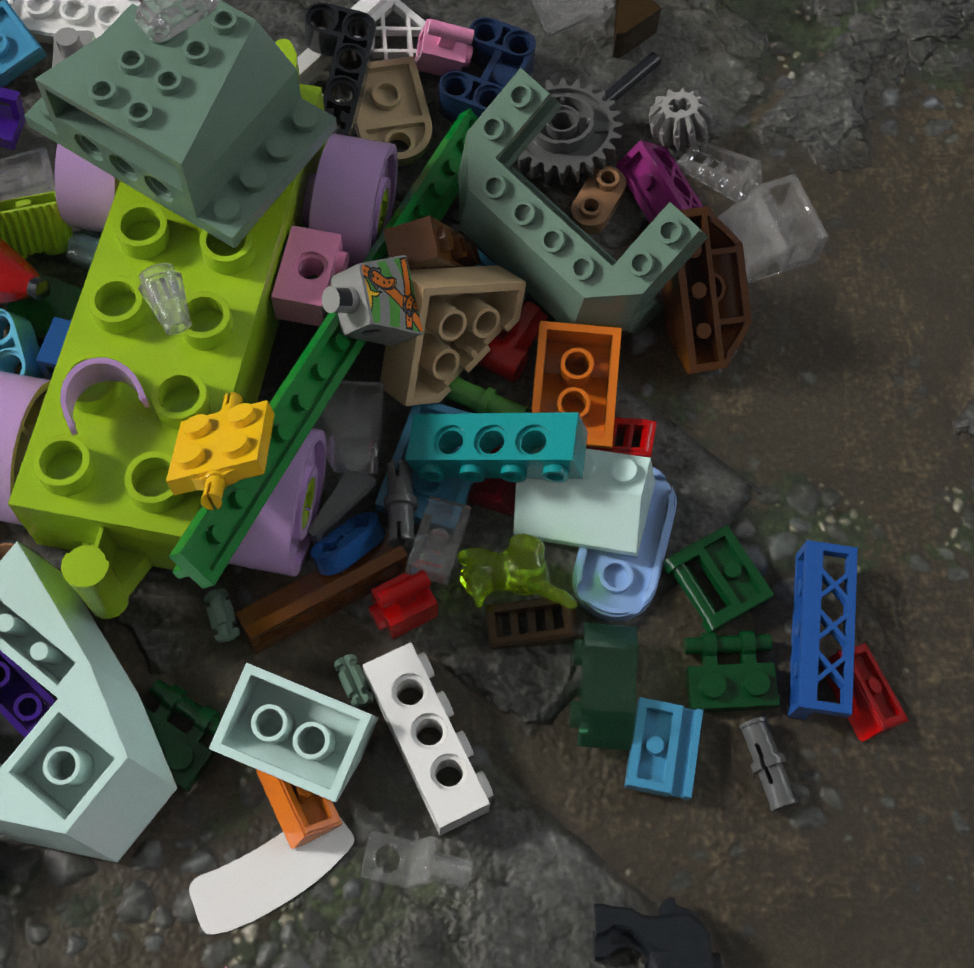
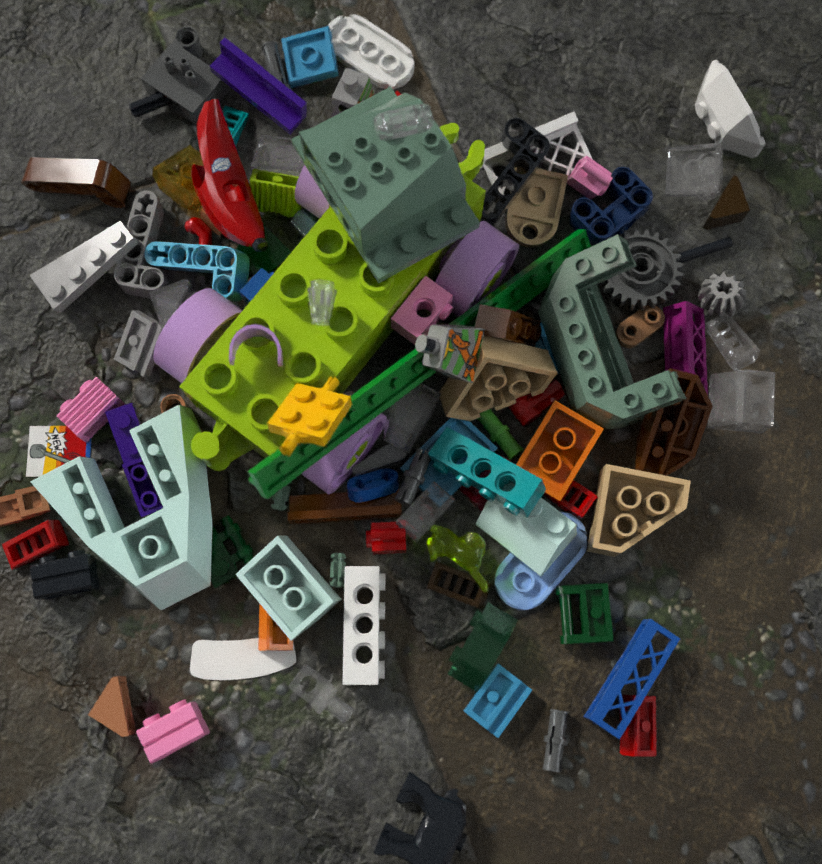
camera: 30 degrees right, 10 degrees up
(707, 414) = (632, 507): none -> tan brick
(731, 686) = (558, 682): dark green plate -> none

